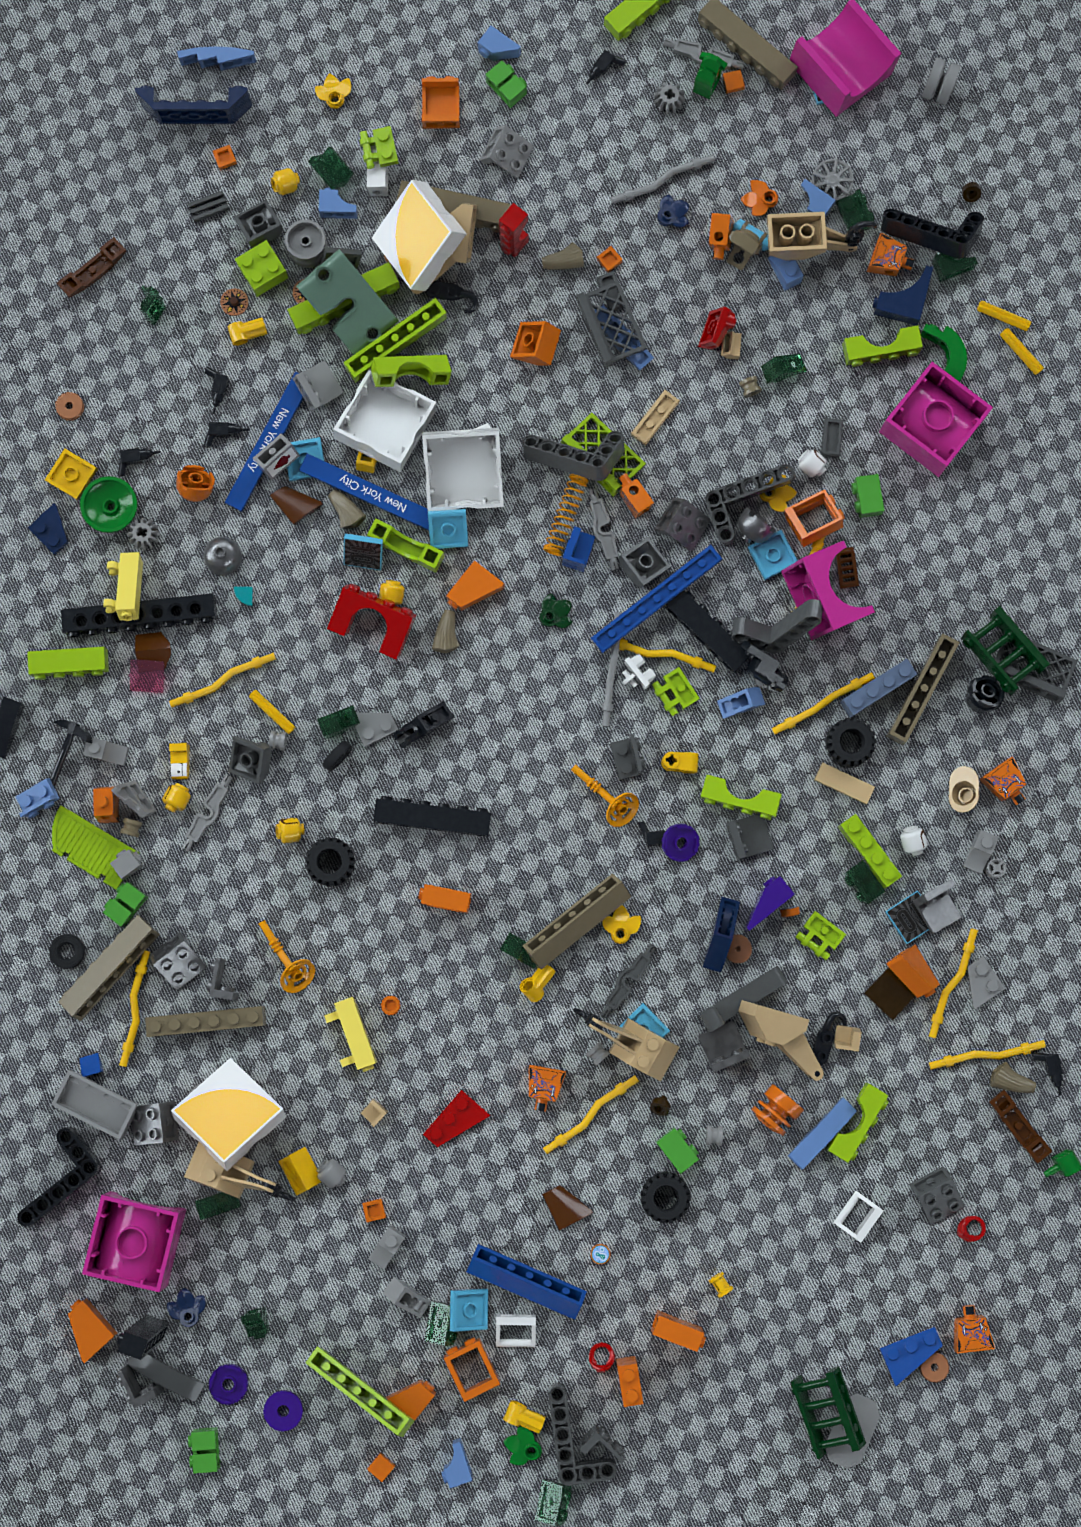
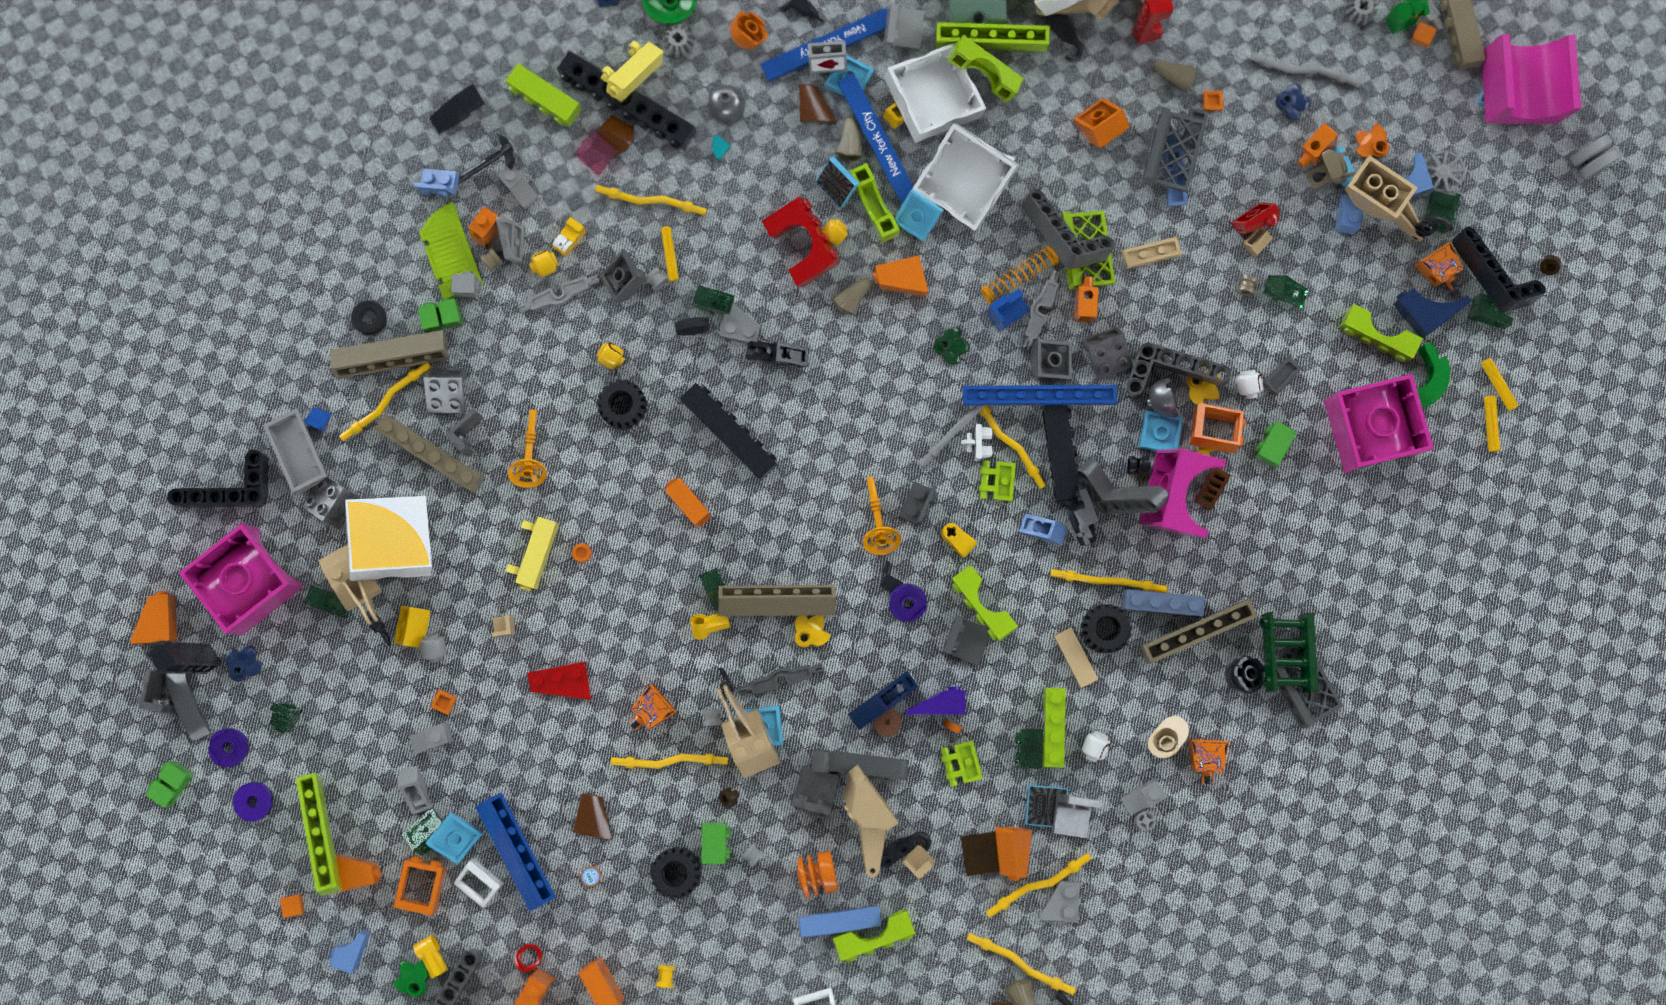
camera: 40 degrees right, 0 degrees up
(776, 594) = (1138, 465): none -> black wheel

